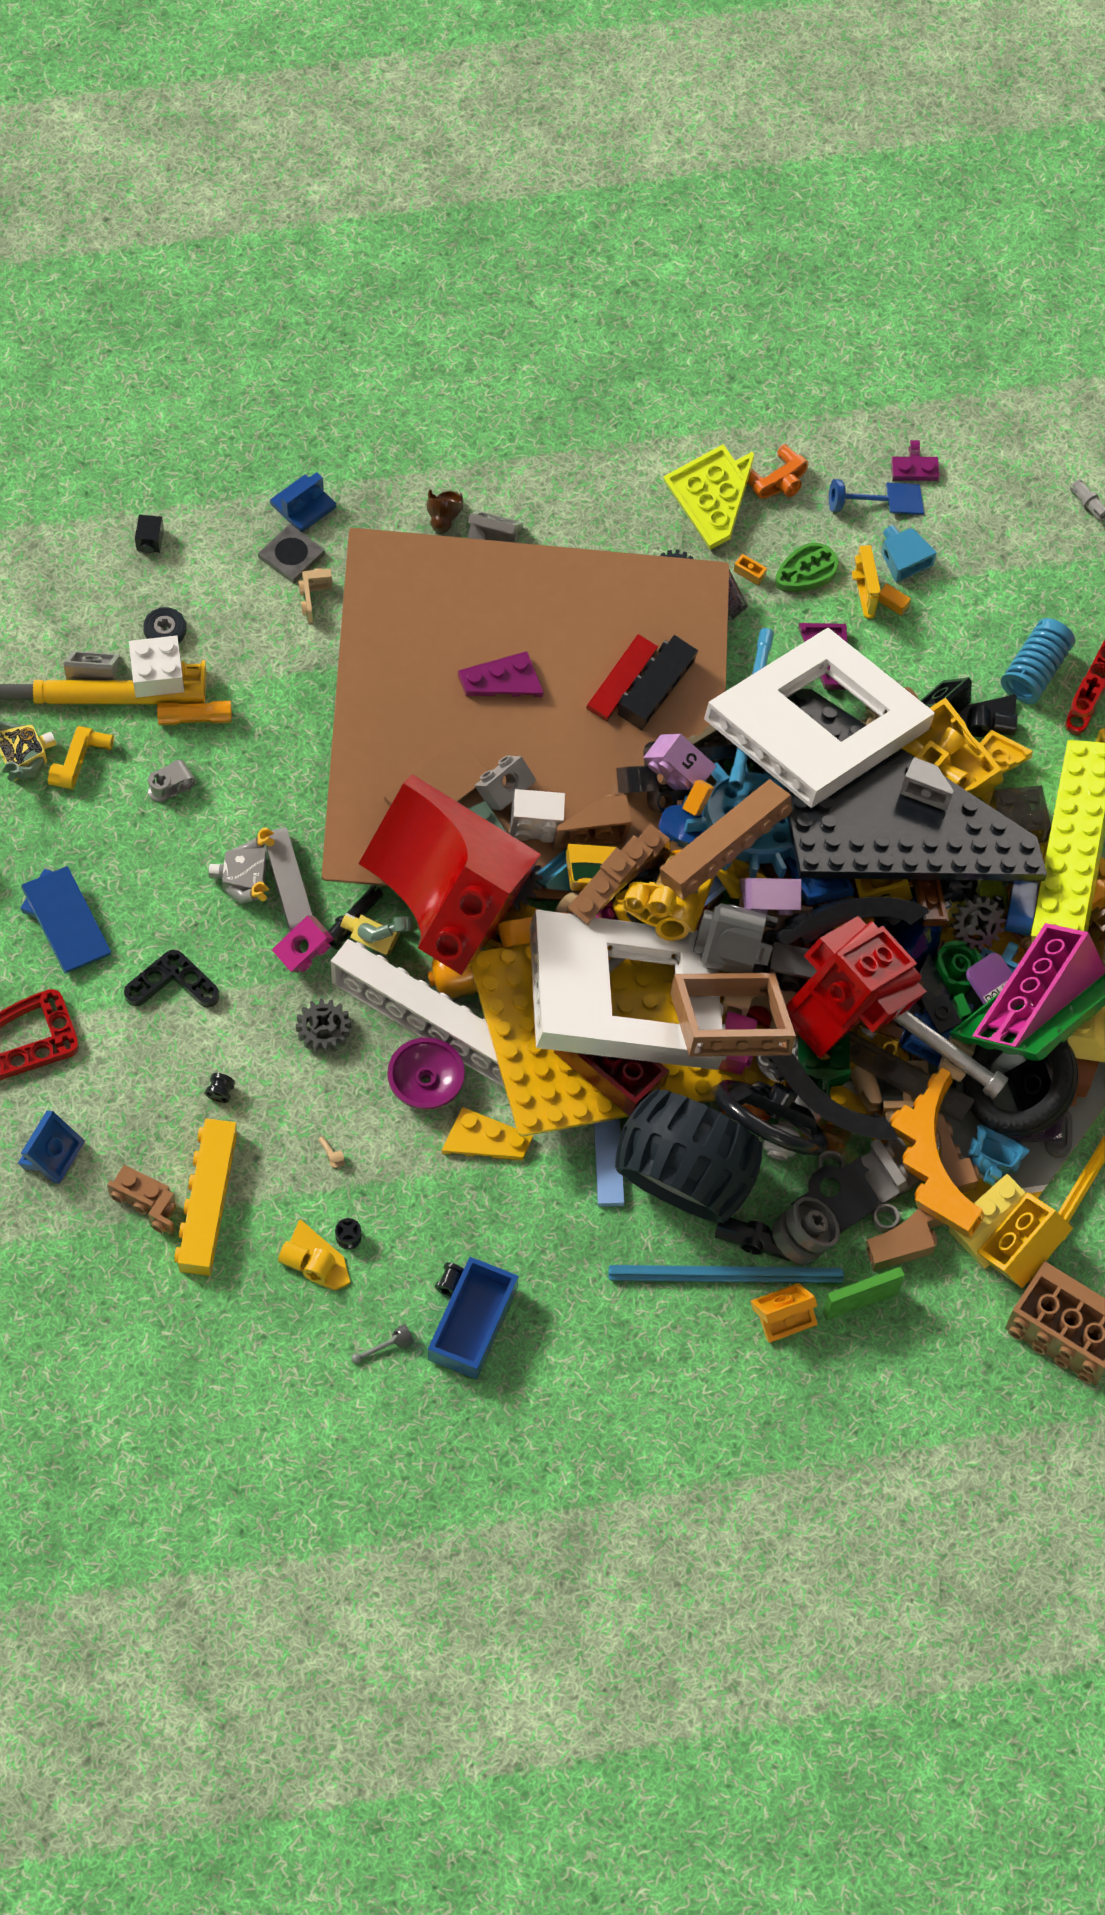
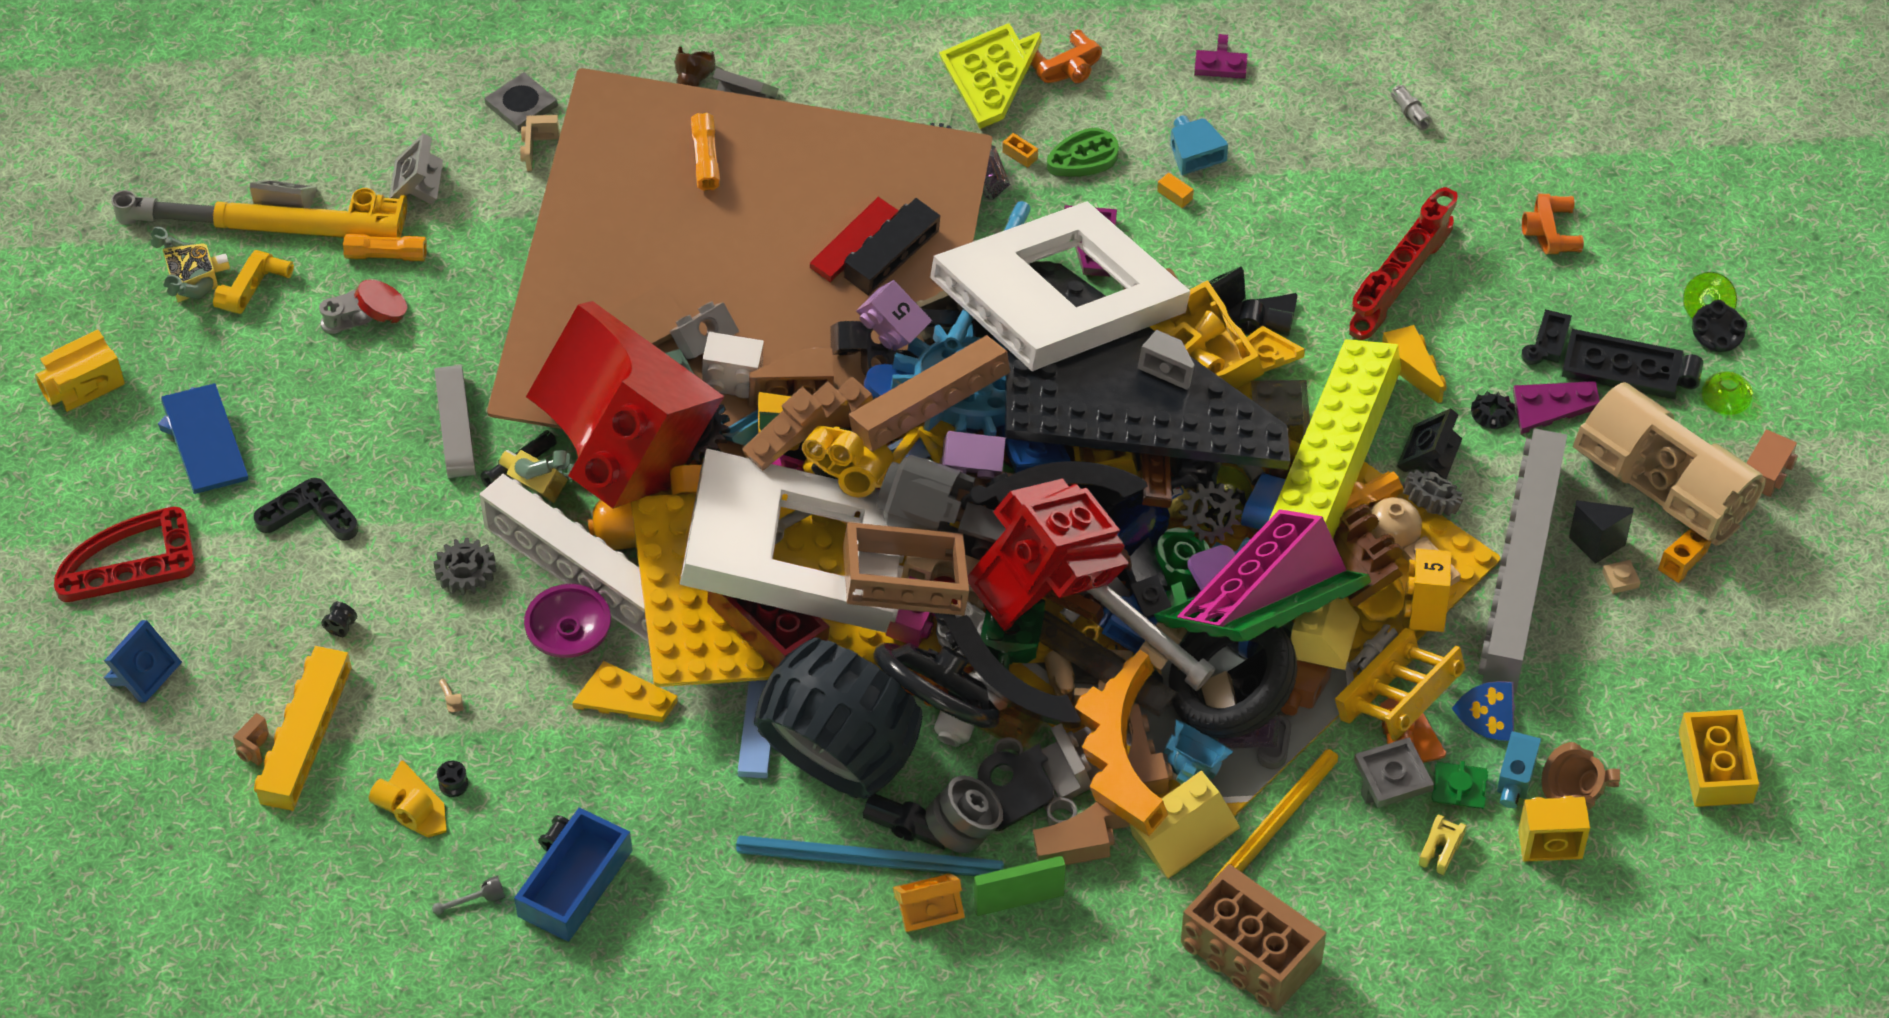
camera: 10 degrees right, 10 degrees down
(135, 1189) = (224, 713): medium nougat bracket -> none
(149, 533) = (370, 71): black brick -> none
(156, 666) = (348, 193): white brick -> none
(164, 616) = (372, 173): black bush -> none
(201, 768) = (380, 301): none -> tile
(210, 635) = (417, 172): none -> light grey bracket
(245, 869) = (409, 403): light grey torso -> none
(289, 949) = (441, 483): dark pink brick -> none
(304, 502) = (544, 52): blue bracket -> none
(481, 617) = (705, 151): none -> light orange axle
(502, 676) = (723, 226): magenta wing -> none
(698, 797) = (906, 350): light orange piece -> none
(867, 581) = (1145, 166): yellow container -> none
(901, 497) = (1199, 91): blue piece -> none
(1010, 1095) = (1219, 691): none -> tan tile
(1025, 1240) = (1212, 842): yellow brick -> none
(1038, 660) = (1325, 259): dark azure piece -> none

